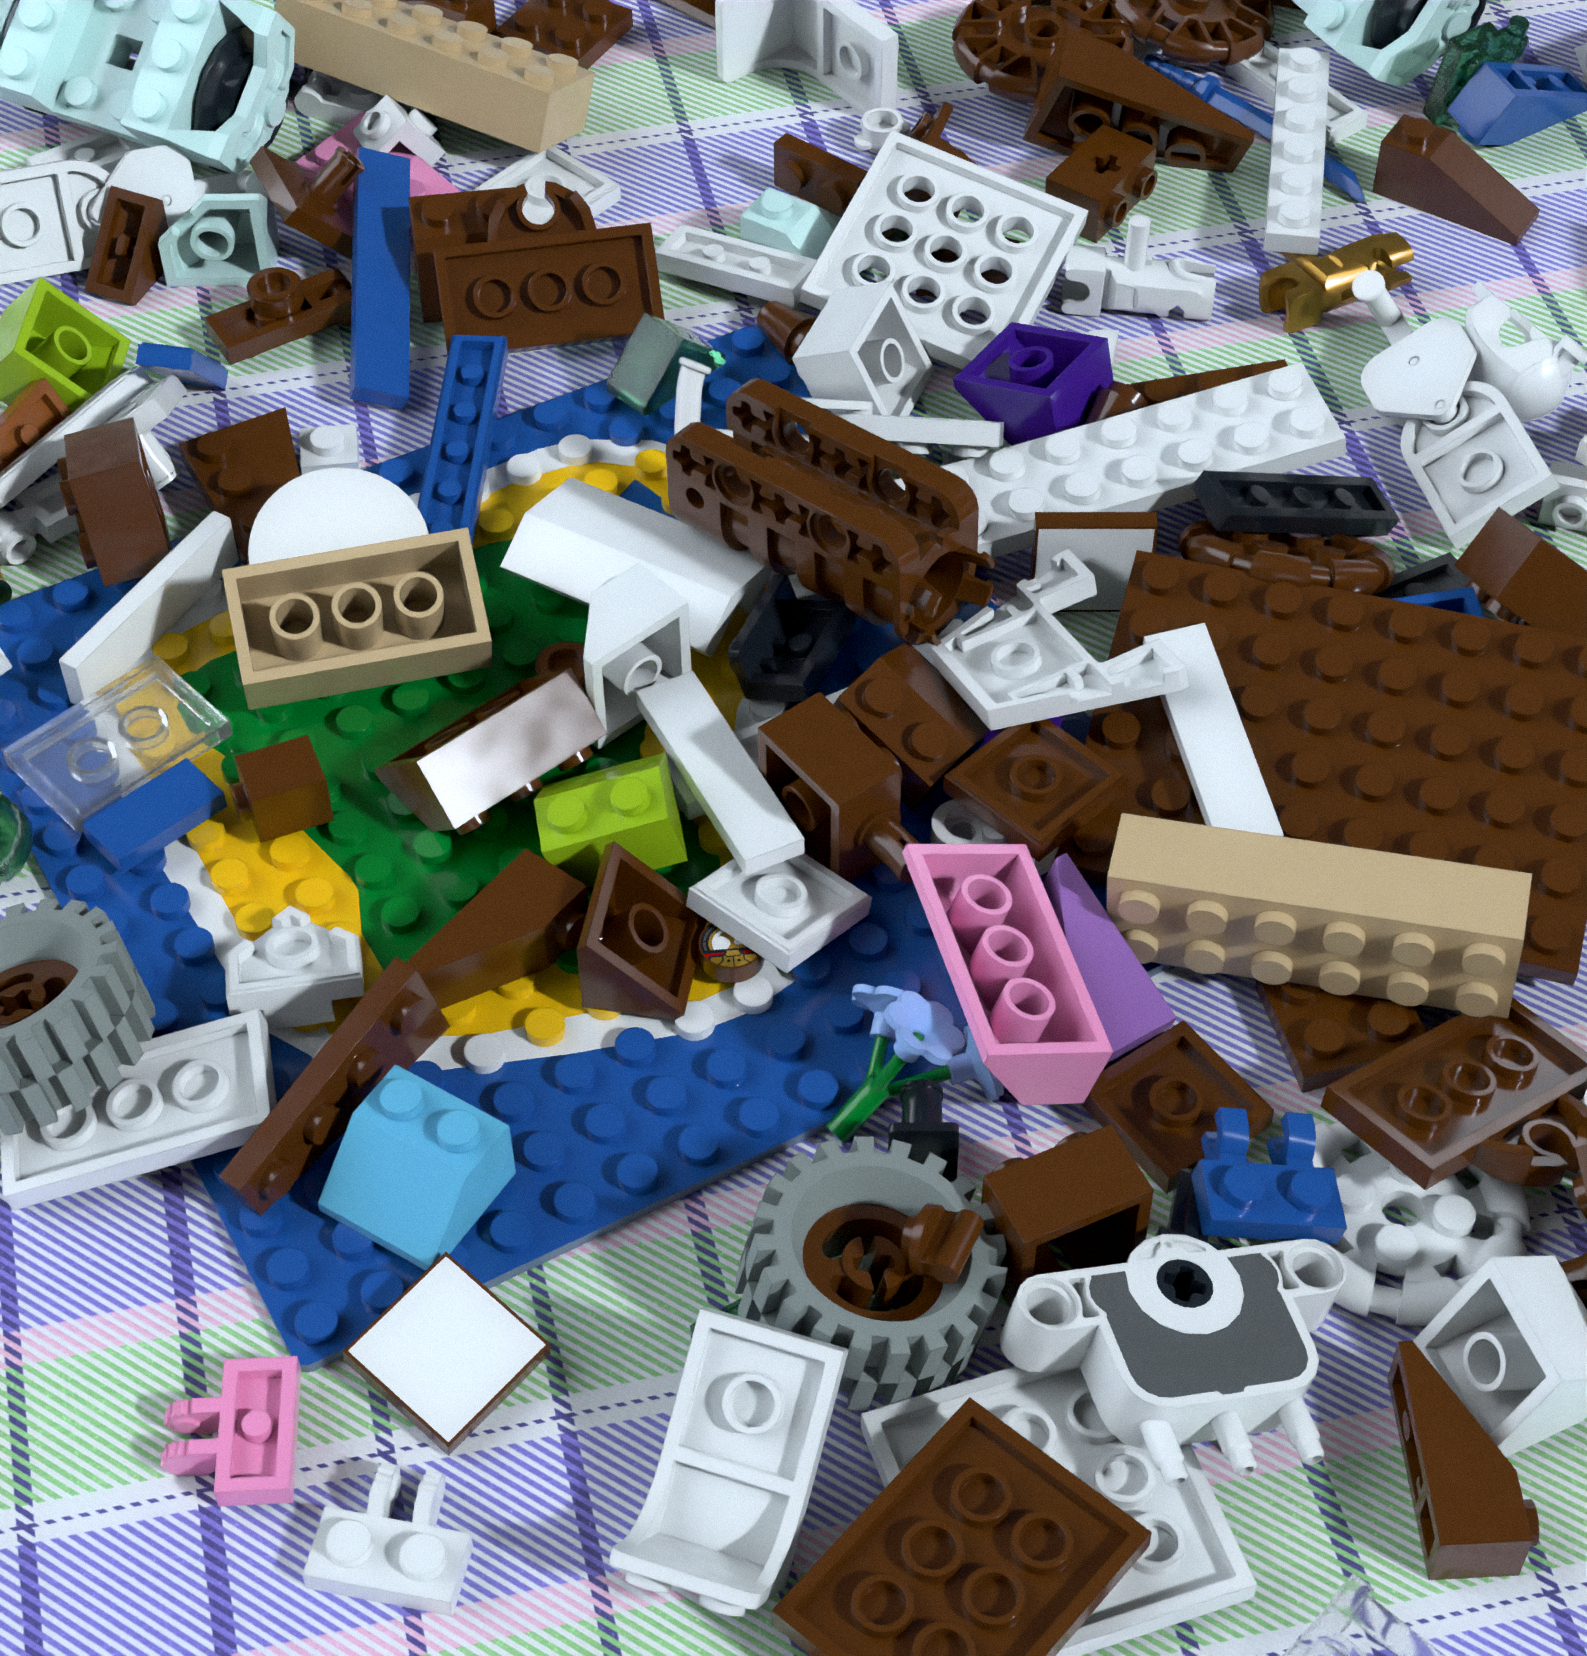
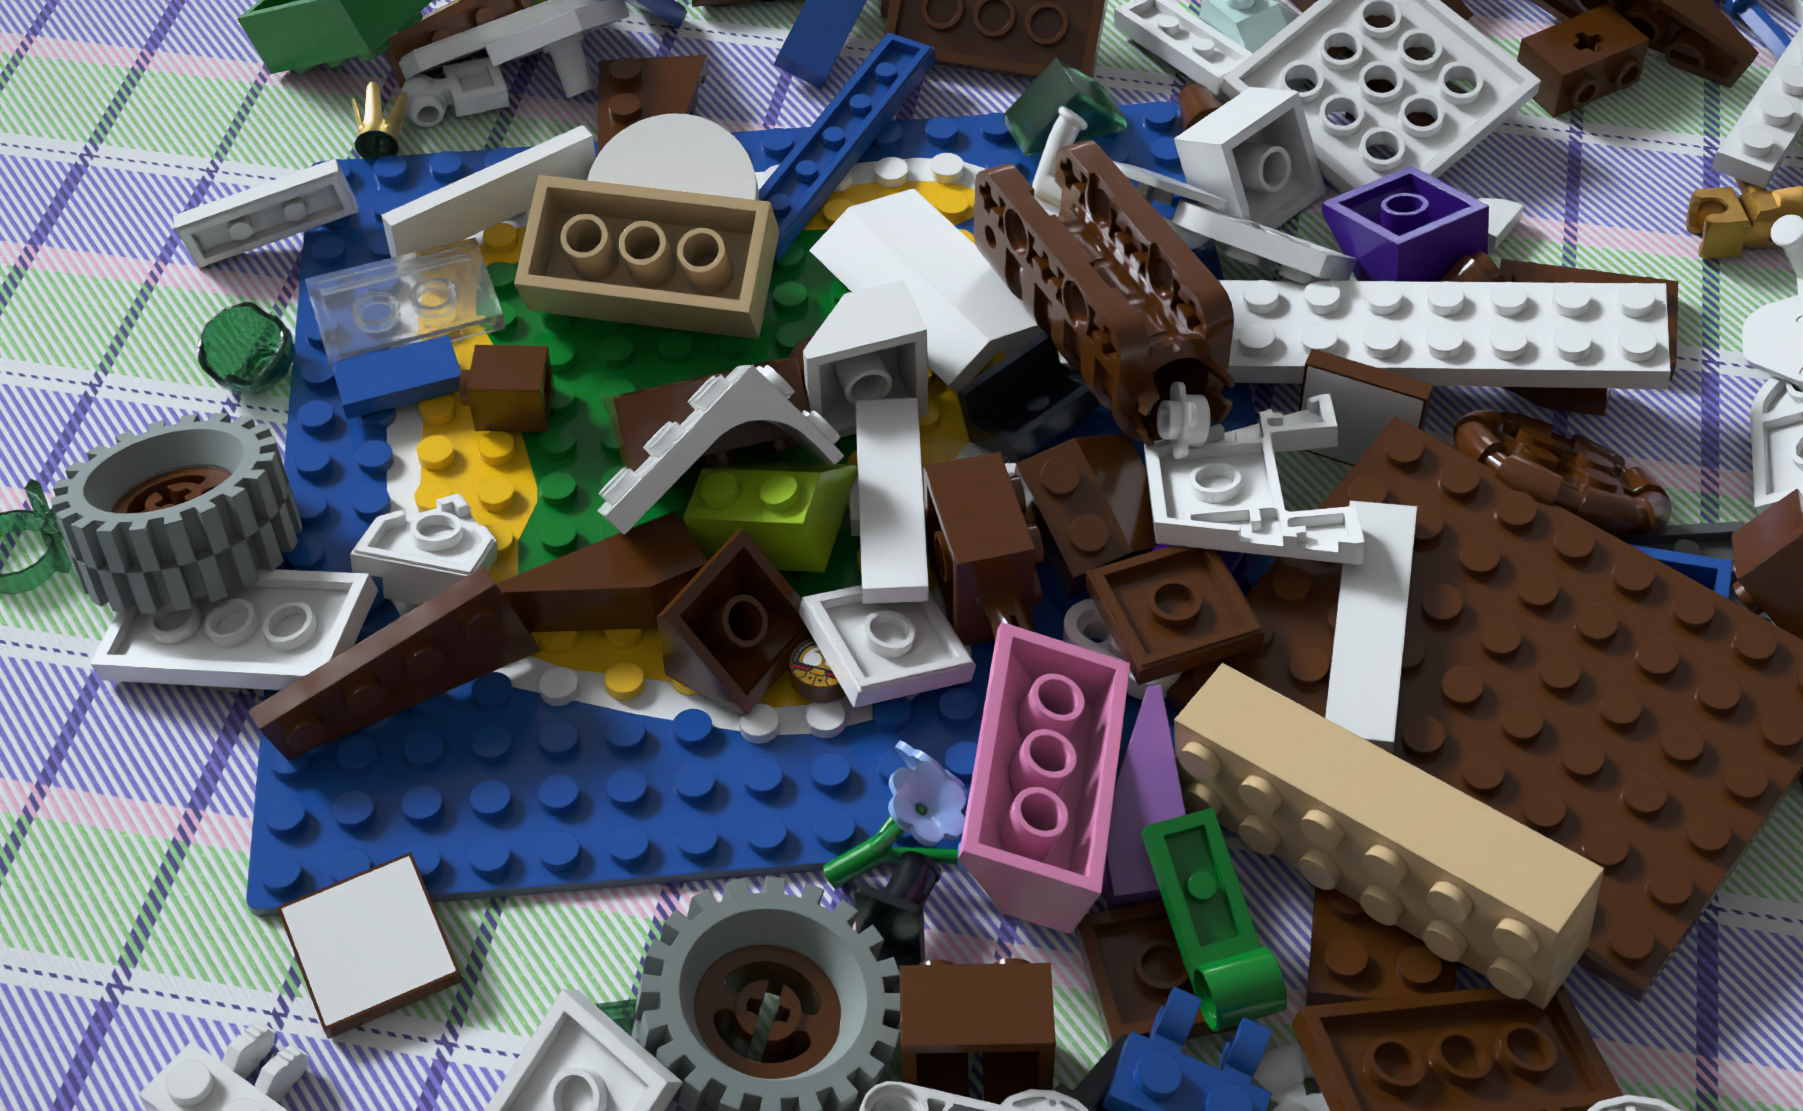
camera: 25 degrees right, 0 degrees up
(113, 501) = (507, 90): reddish brown brick -> none
(255, 1432) = (173, 949): bright pink hinge -> none
(329, 447) = (734, 105): white plate -> none
(417, 1168) = (428, 767): medium azure slope -> none
(523, 763) = (719, 406): none -> white bracket
(940, 1241) = (828, 1012): reddish brown plate -> none
(963, 611) = (1183, 420): none -> white plate
(1136, 280) = (1564, 162): white piece -> none
(1210, 1042) = (1213, 921): none -> green plate
(1294, 503) = (1597, 422): black plate -> none

